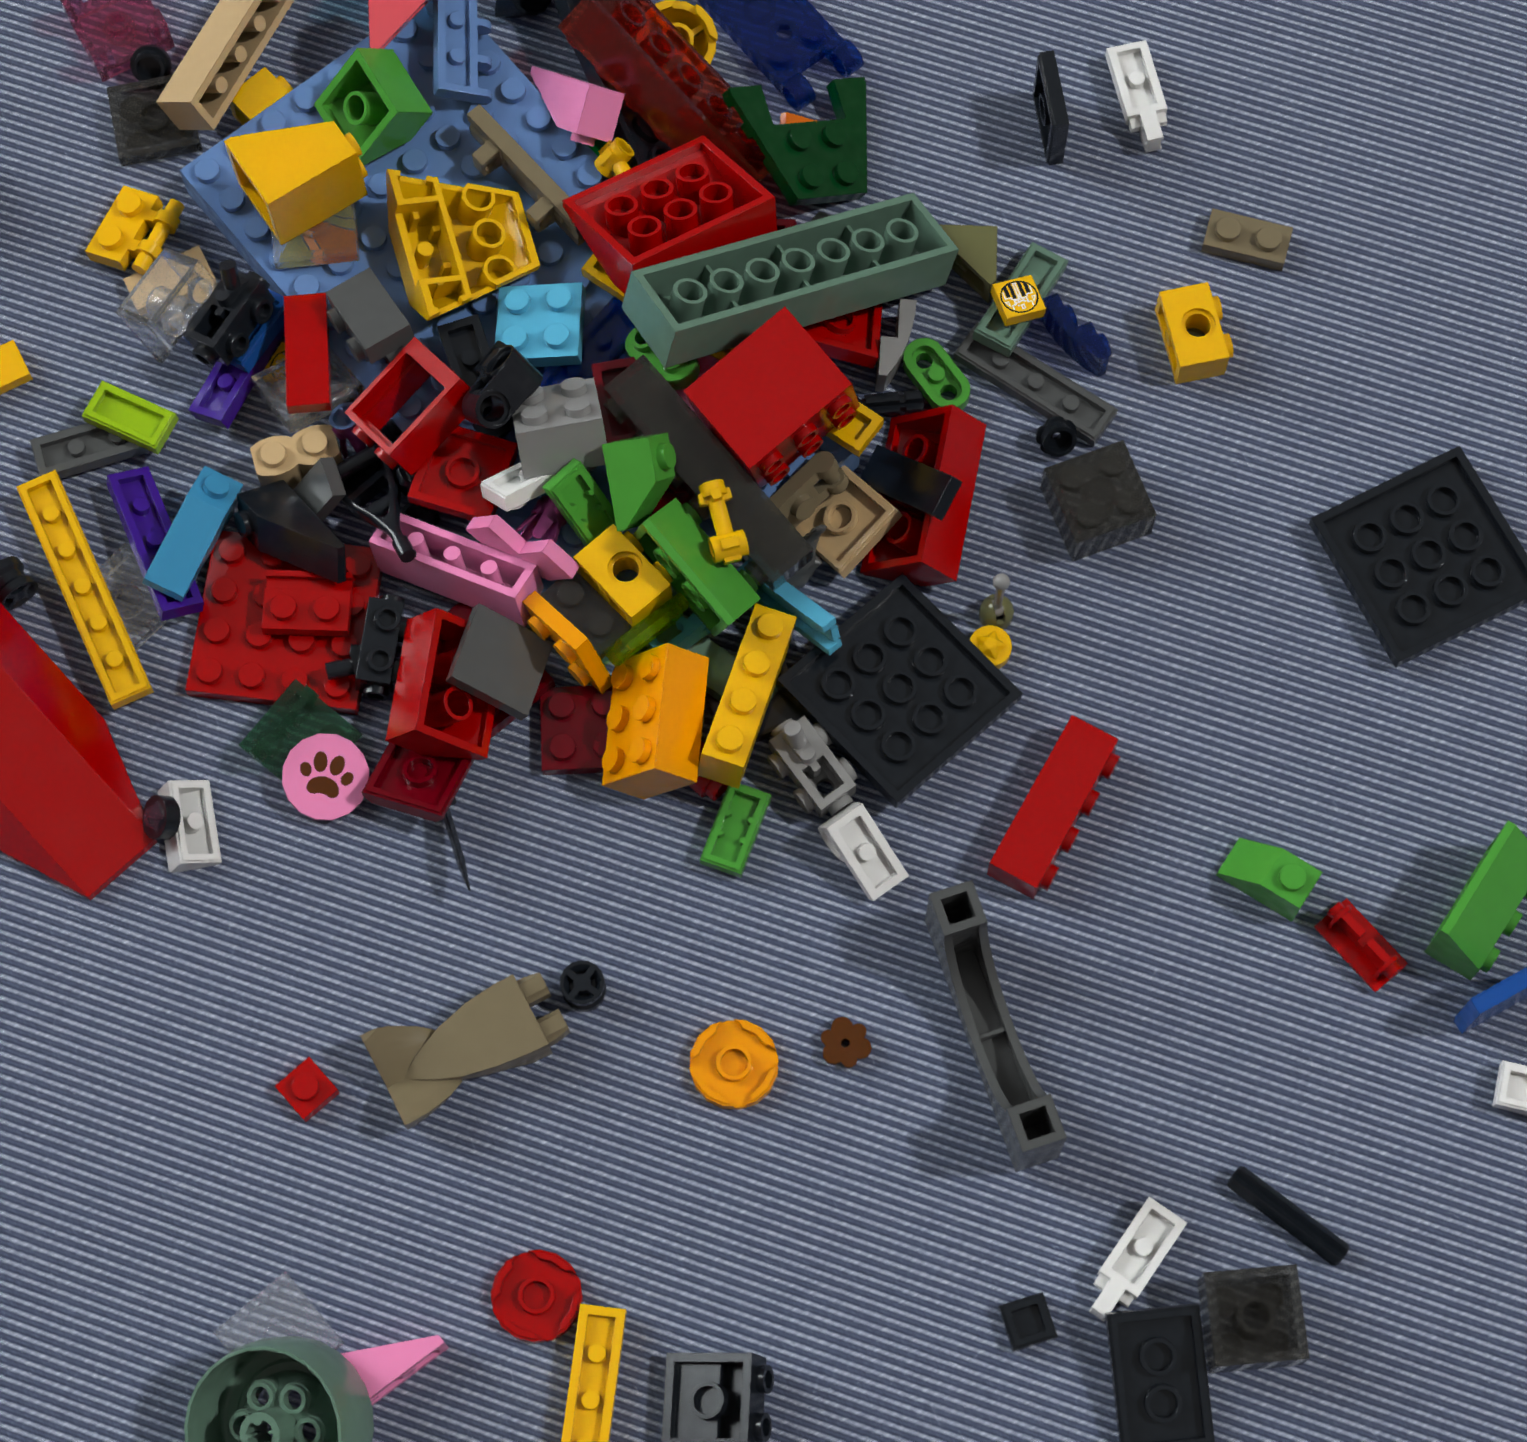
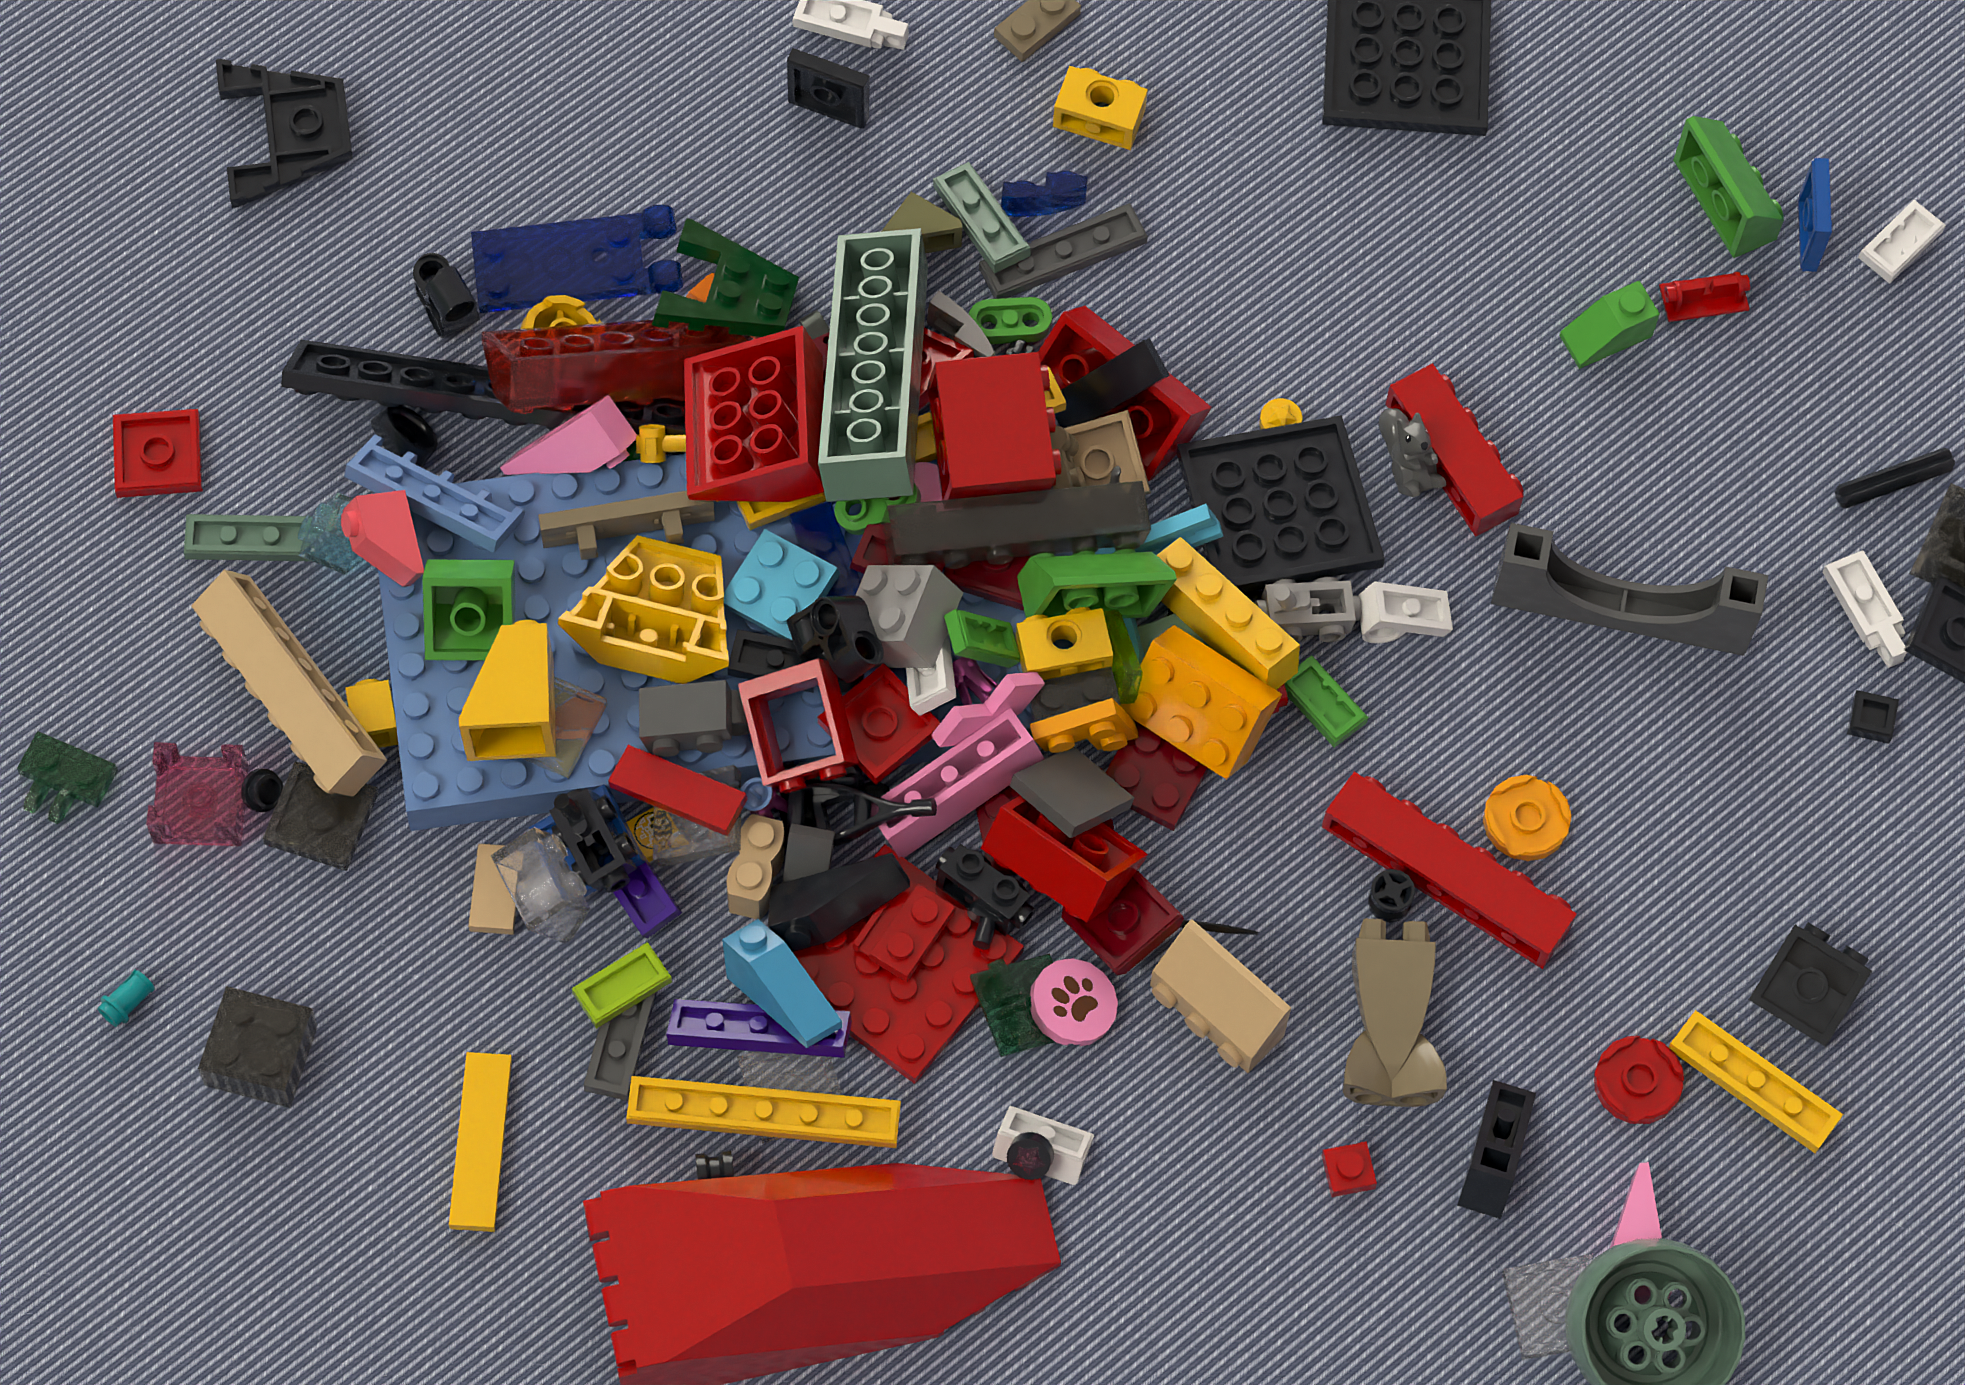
camera: 65 degrees left, 5 degrees down
(127, 224) = (415, 897): yellow plate -> none
(391, 892) = (1220, 998): none -> tan slope
(392, 1204) = (1497, 1149): none -> black slope
(636, 1021) = (1449, 869): none -> red brick
(638, 476) = (992, 570): bright green slope -> none
(727, 544) = (1103, 538): yellow bar -> none
(841, 1031) = (1568, 714): reddish brown plant -> none
(997, 604) = (1247, 395): olive hinge -> none
(1017, 772) = (1410, 452): none -> dark grey animal
(1018, 300) = (989, 215): yellow tile -> none
(1059, 445) = (1126, 261): black plate -> none
(1098, 500) = (1206, 262): clear smoke brick -> none

